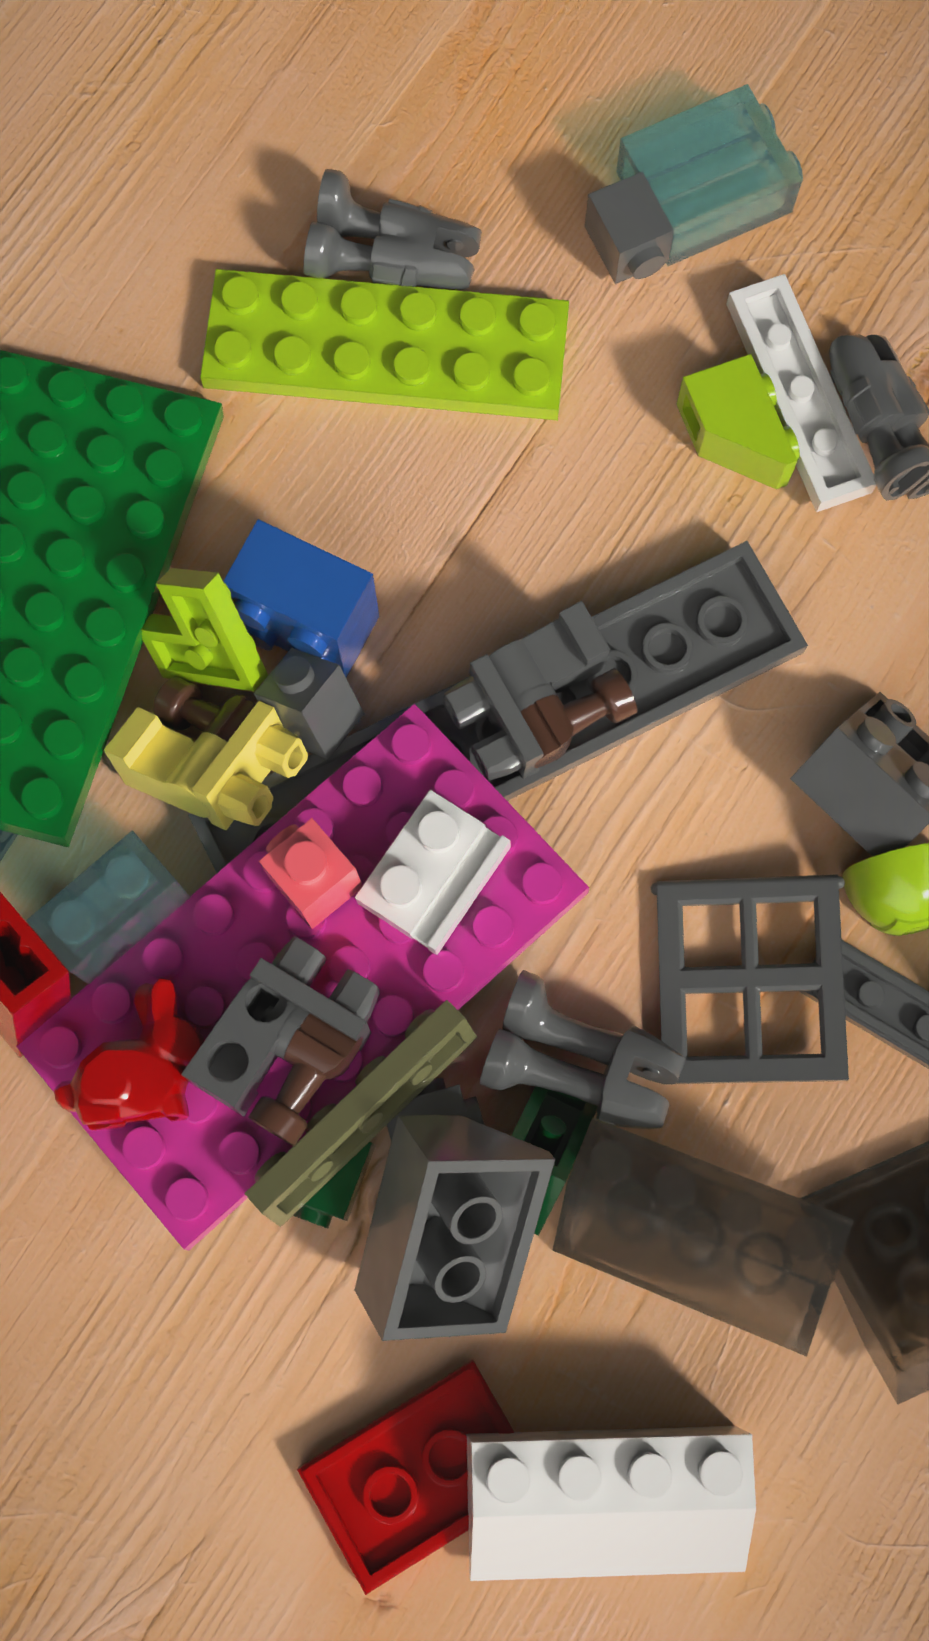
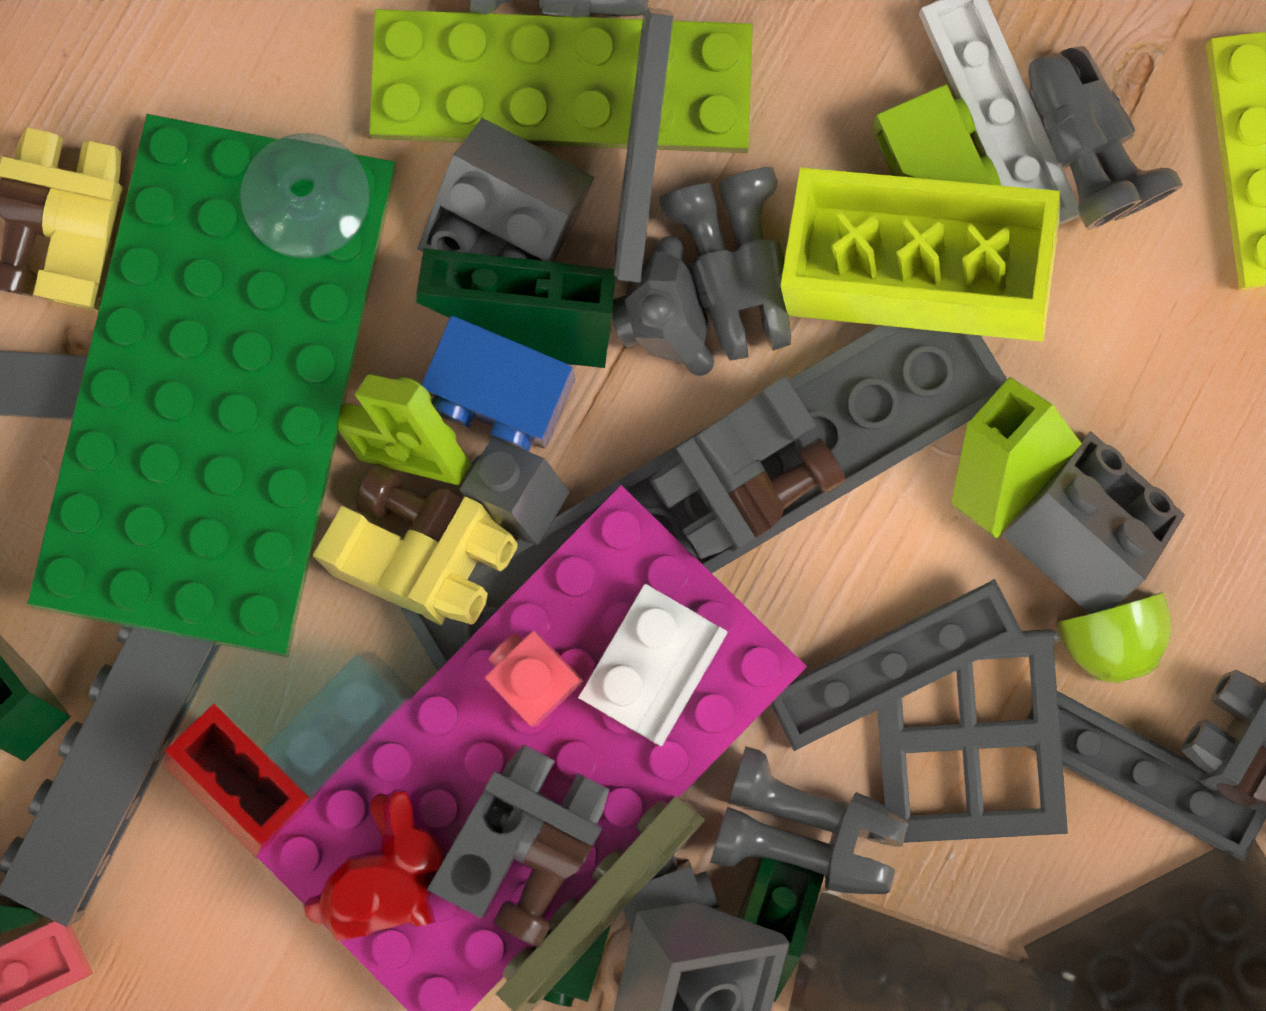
camera: 10 degrees left, 10 degrees up
(136, 441) = (310, 223): none -> clear light blue dish
(320, 452) = (505, 198): none -> dark grey slope
(353, 525) = (533, 302): none -> dark green slope
(456, 375) = (642, 143): none -> dark grey tile
(470, 551) = (665, 311): none -> dark grey rock
(545, 523) = (739, 278): none -> dark grey piece
(678, 901) = (896, 664): none -> dark grey tile
(721, 501) = (921, 253): none -> neon yellow brick
(801, 701) = (1009, 456): none -> lime slope

